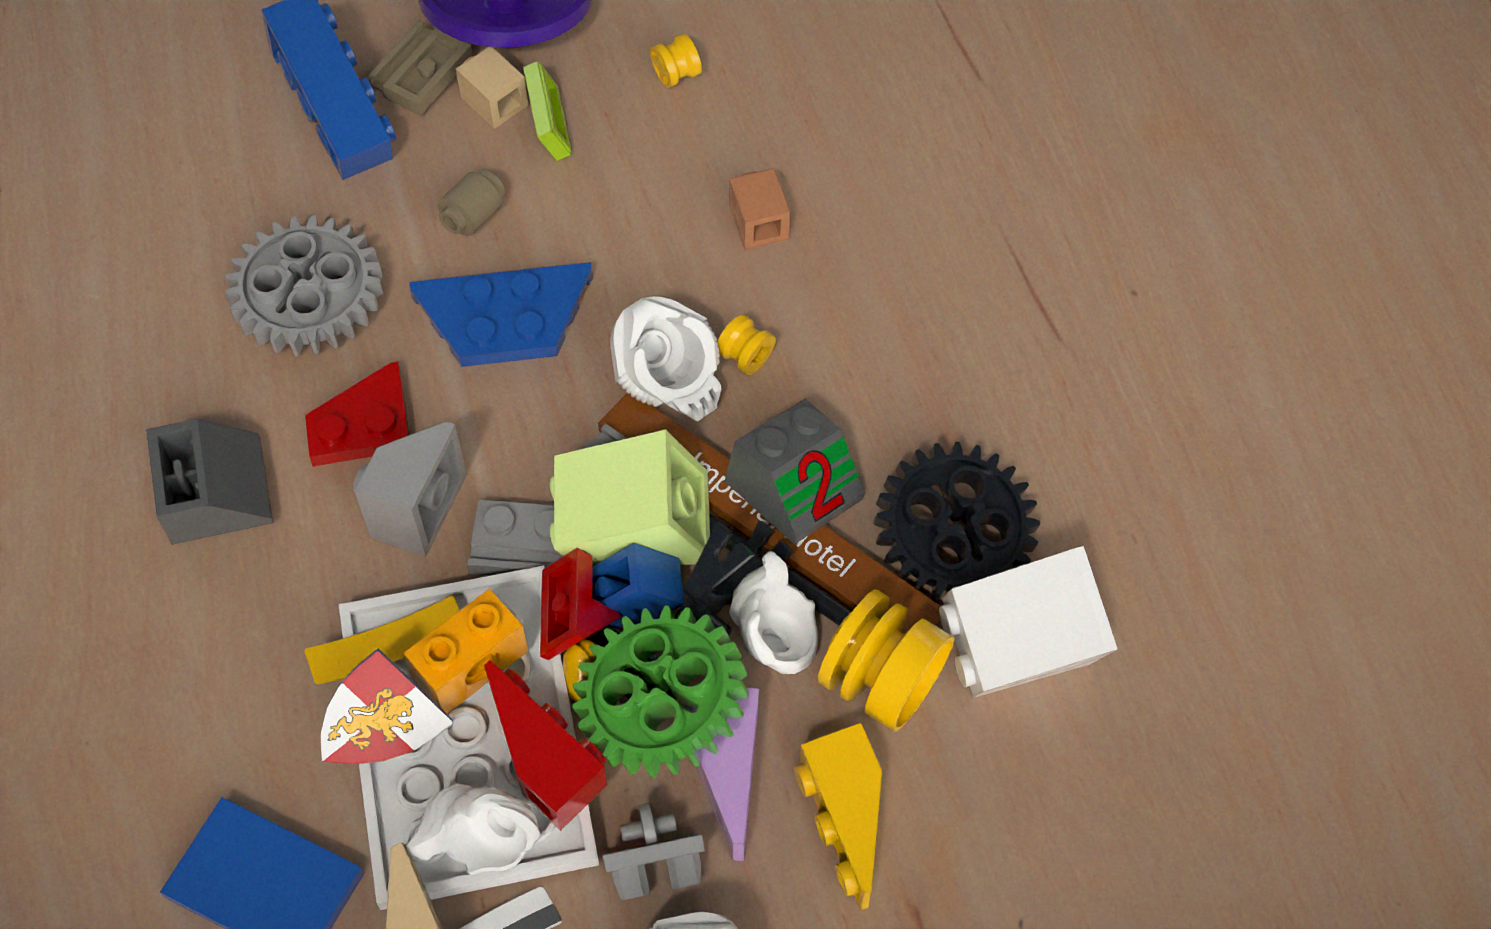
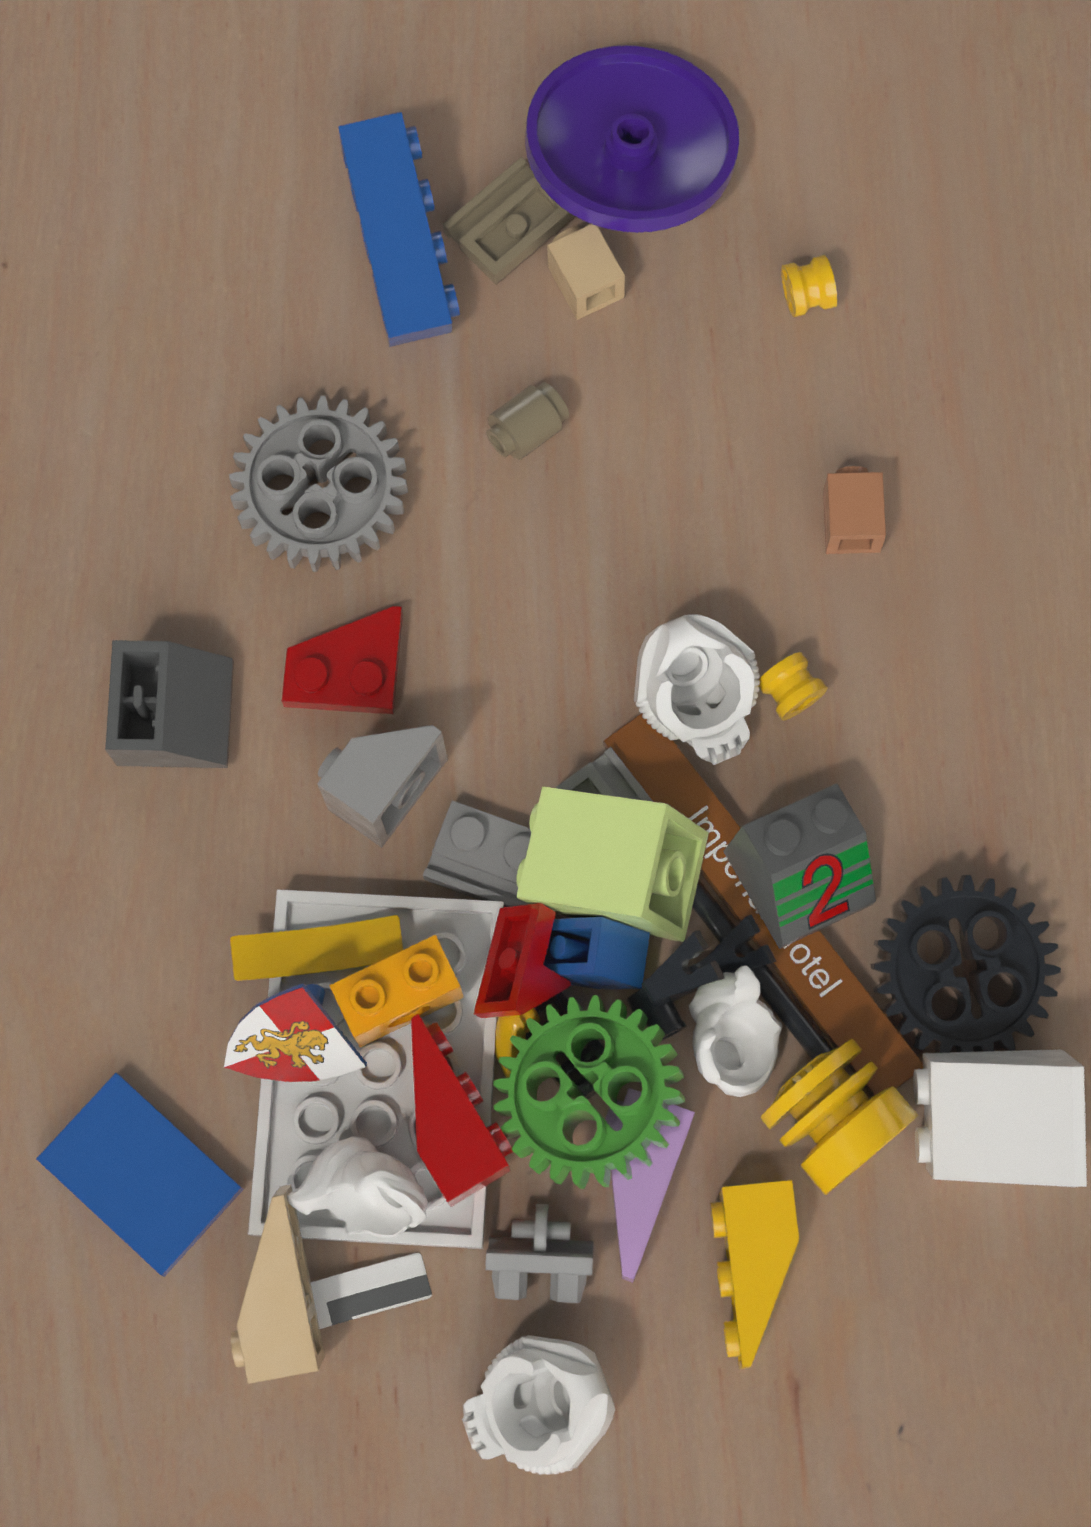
camera: 20 degrees right, 15 degrees up
(504, 312) = (533, 570): blue wing -> none
(547, 111) = (642, 320): lime tile -> none

